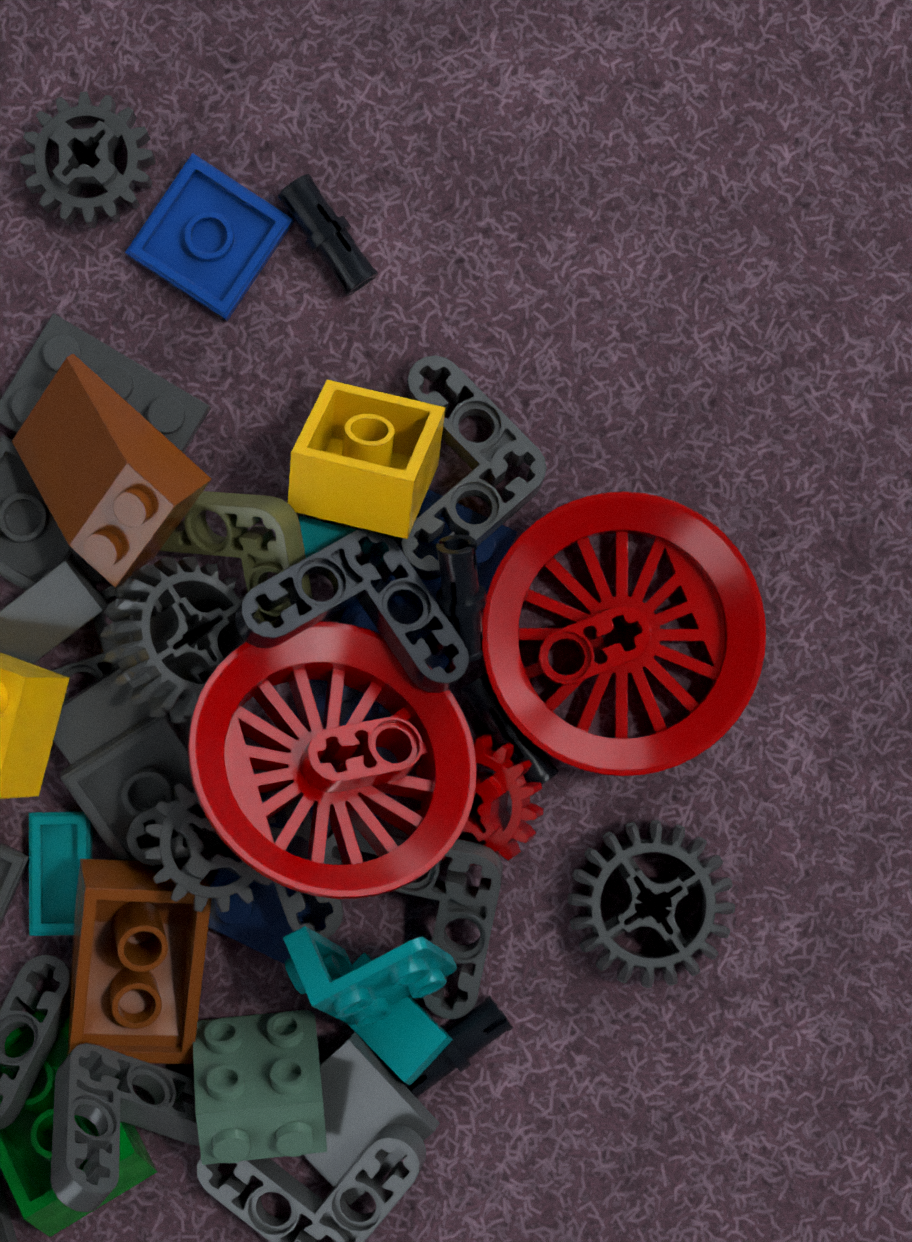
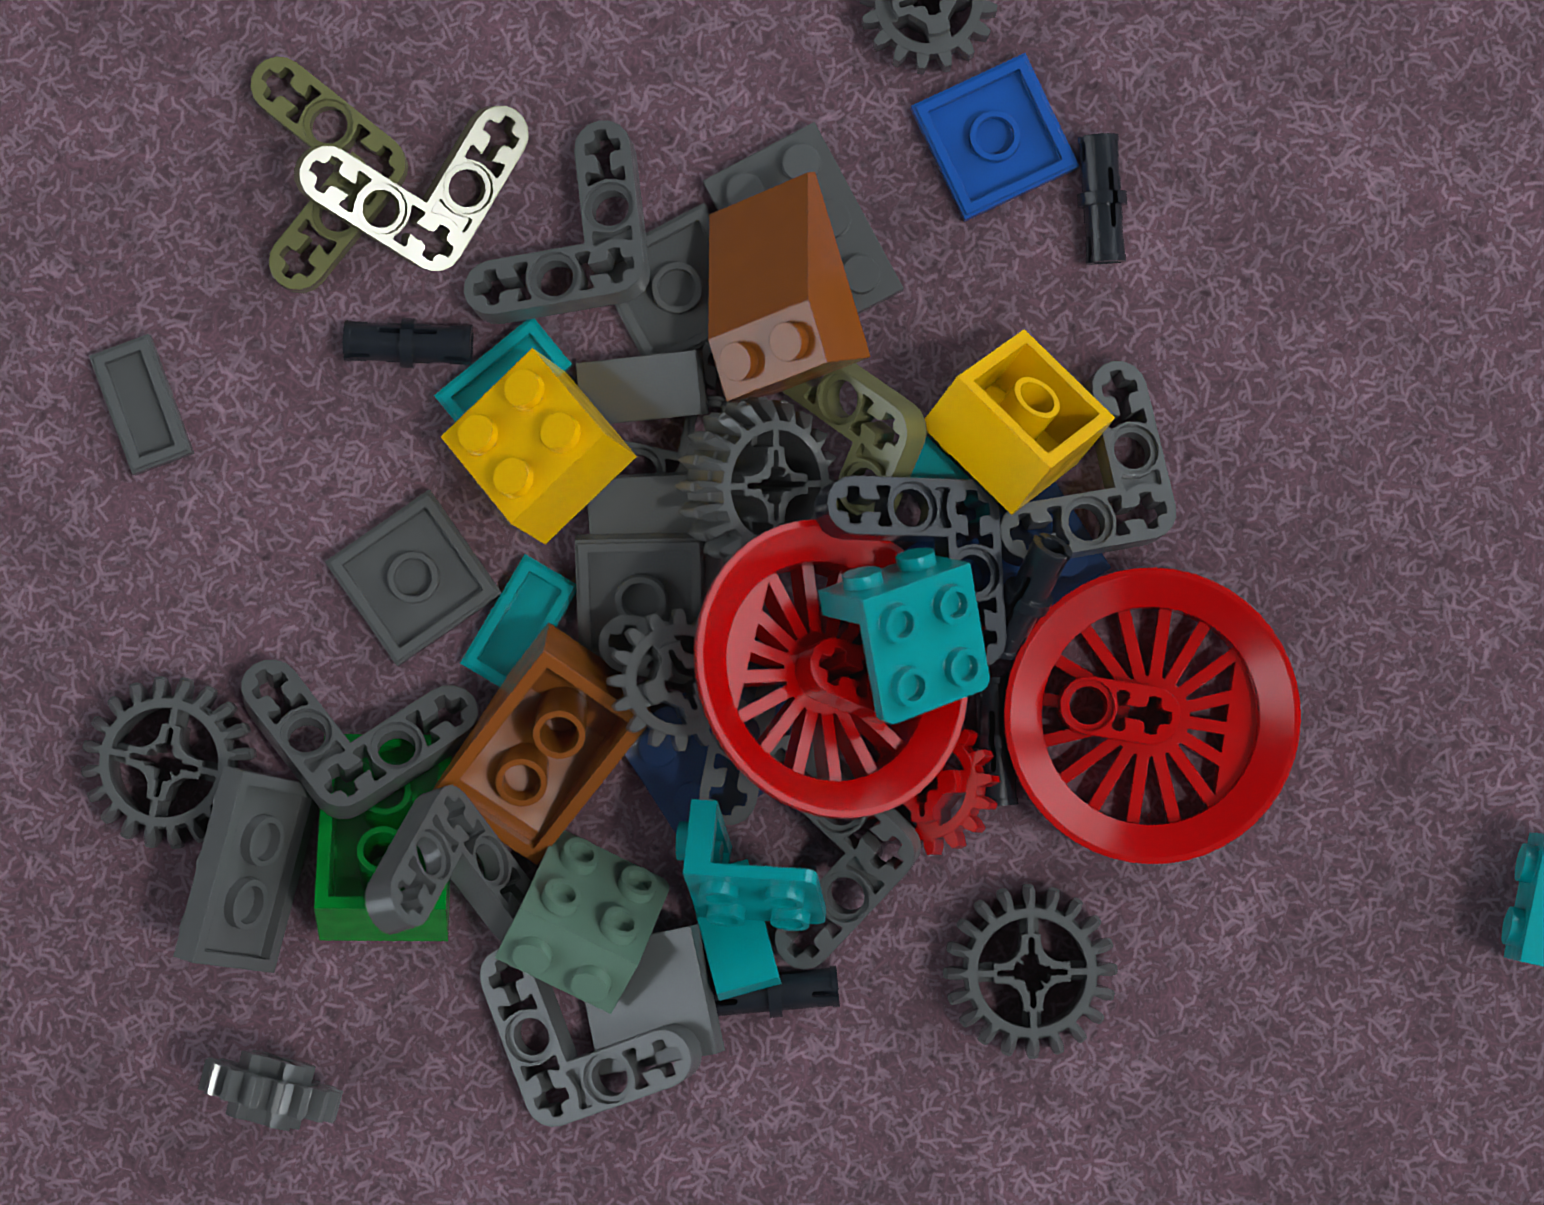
camera: 35 degrees right, 0 degrees up
(383, 685) = (915, 630): none -> teal bracket

